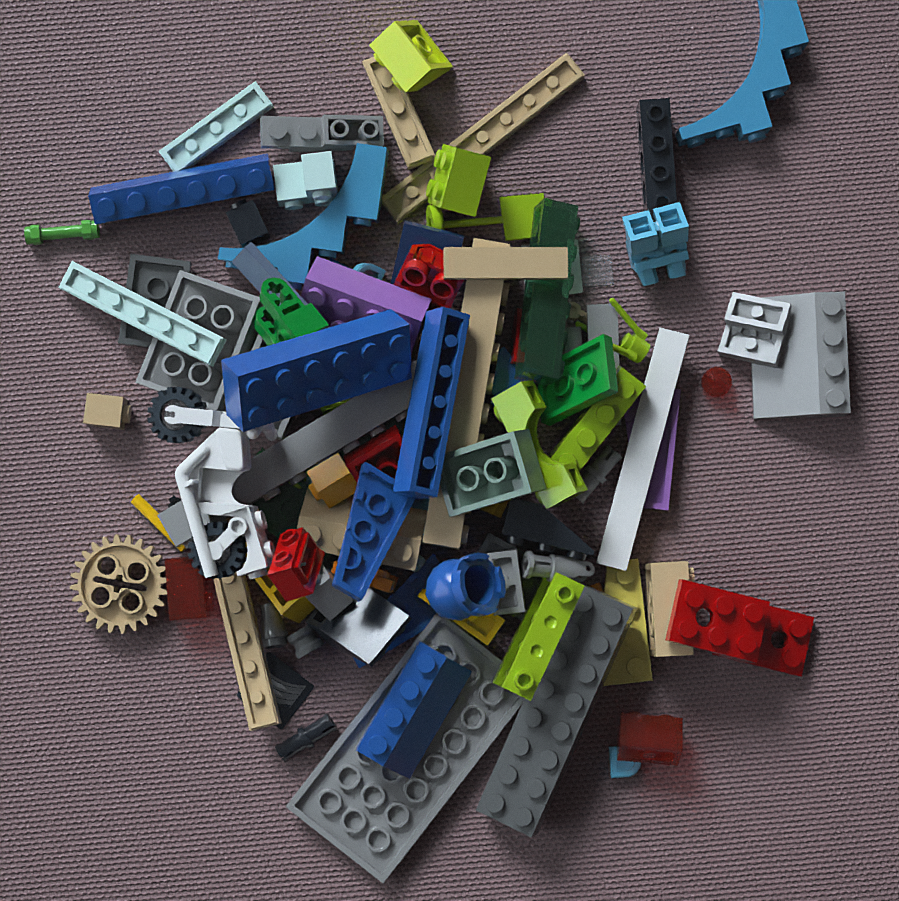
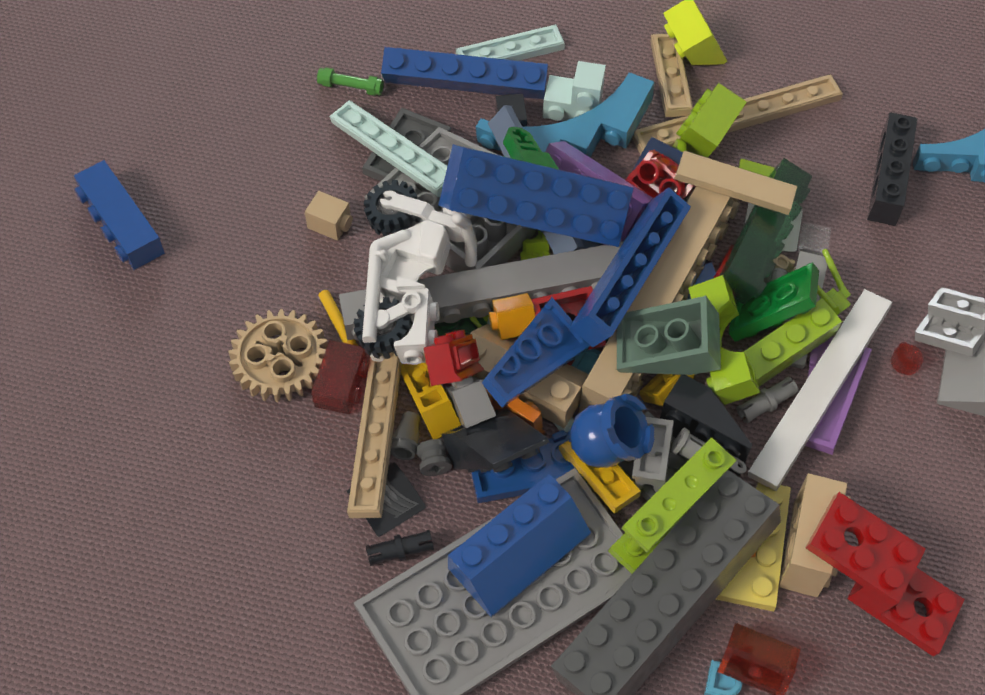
camera: 20 degrees right, 25 degrees down
(320, 133) = (566, 57): light grey slope -> none
(657, 242) = (879, 222): medium azure hips -> none

